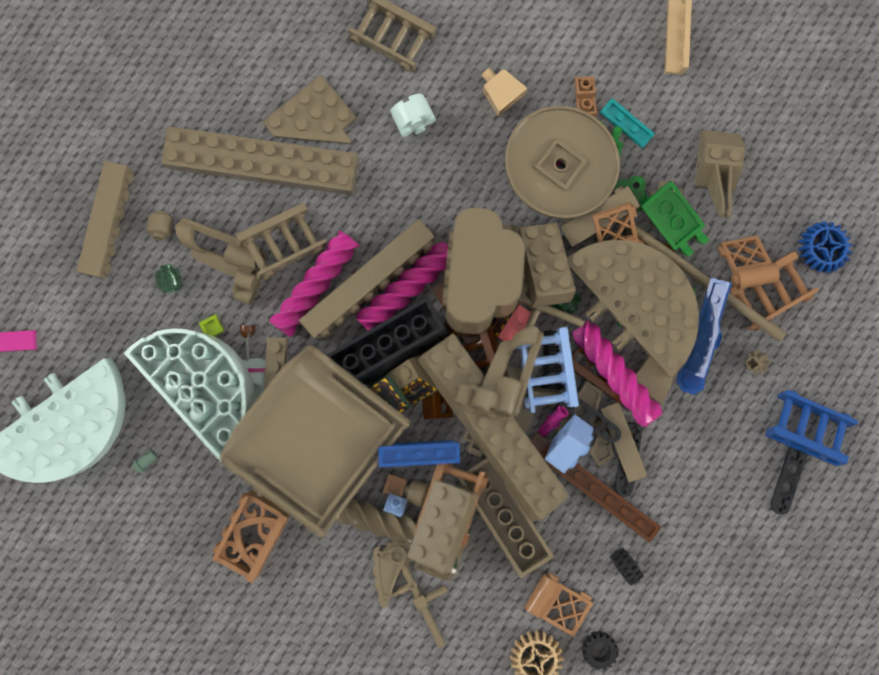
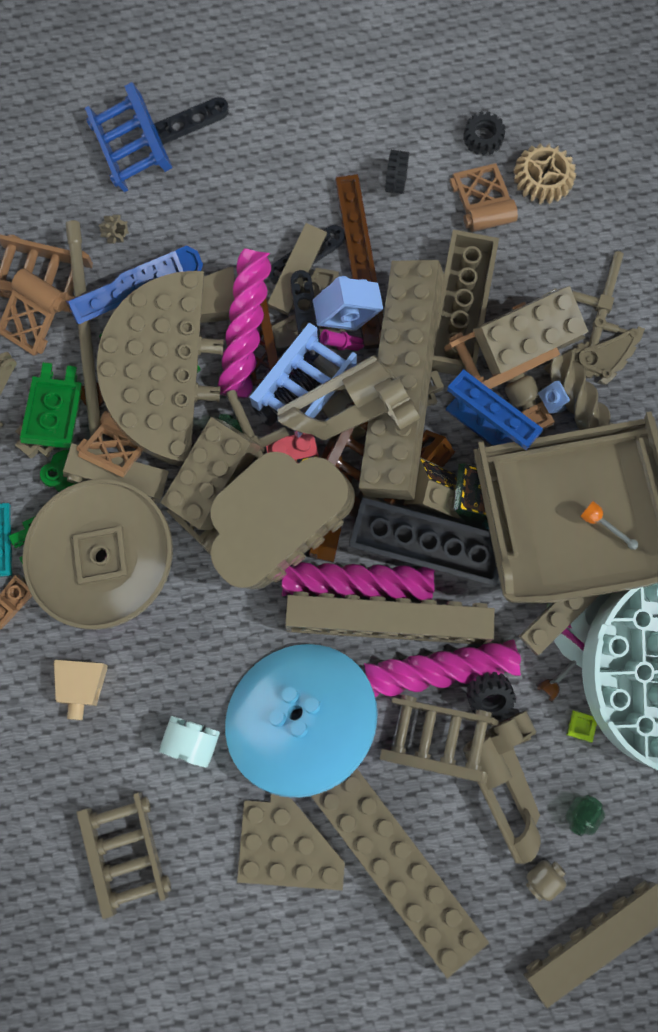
camera: 140 degrees left, 10 degrees down
(274, 293) = (487, 686): none -> black tyre
(303, 442) = (594, 514): none -> hinge
(340, 187) = (322, 745): none -> medium azure dish

